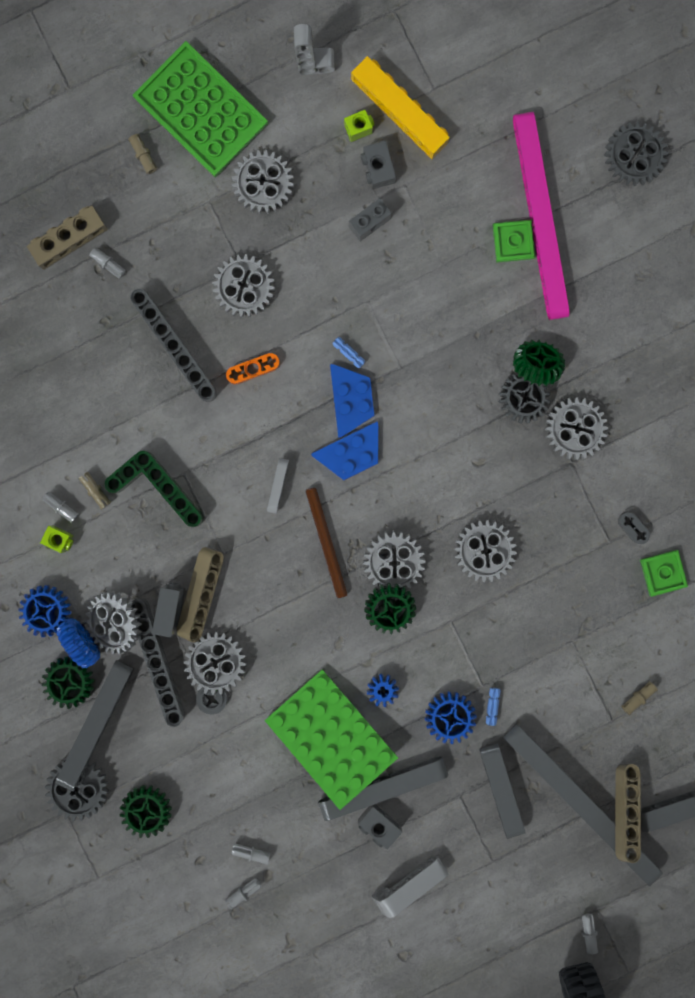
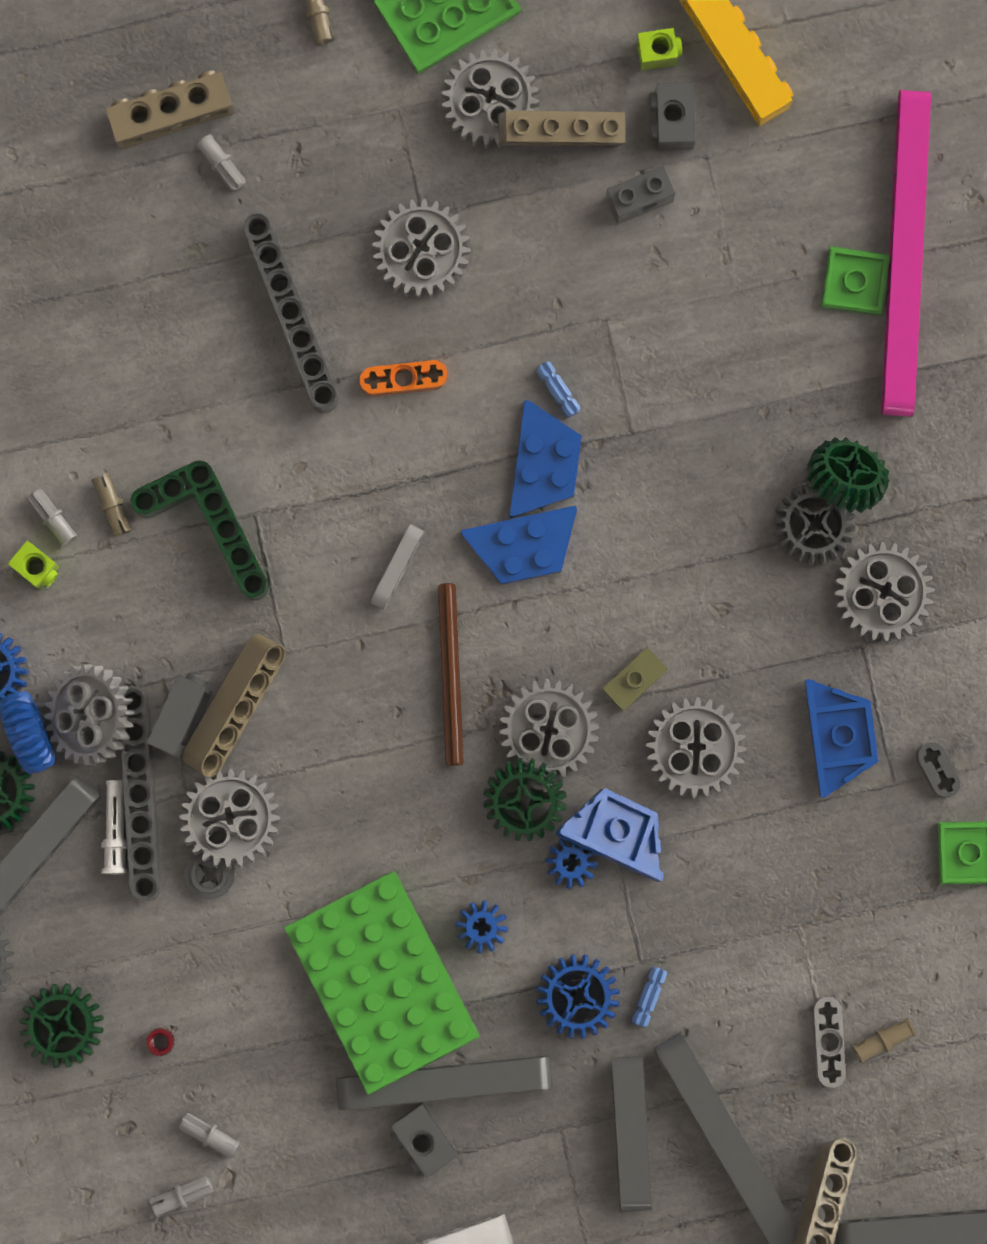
camera: 15 degrees right, 5 degrees down
(149, 696) = (117, 845): none -> white pin
(207, 811) = (170, 1041): none -> dark red axle
(311, 189) = (561, 128): none -> dark tan brick
(432, 642) = (577, 871): none -> blue gear
(438, 518) = (635, 679): none -> olive plate
(450, 614) = (617, 832): none -> wing
(570, 522) = (840, 735): none -> blue wing
(605, 721) = (823, 1065): none -> light grey beam

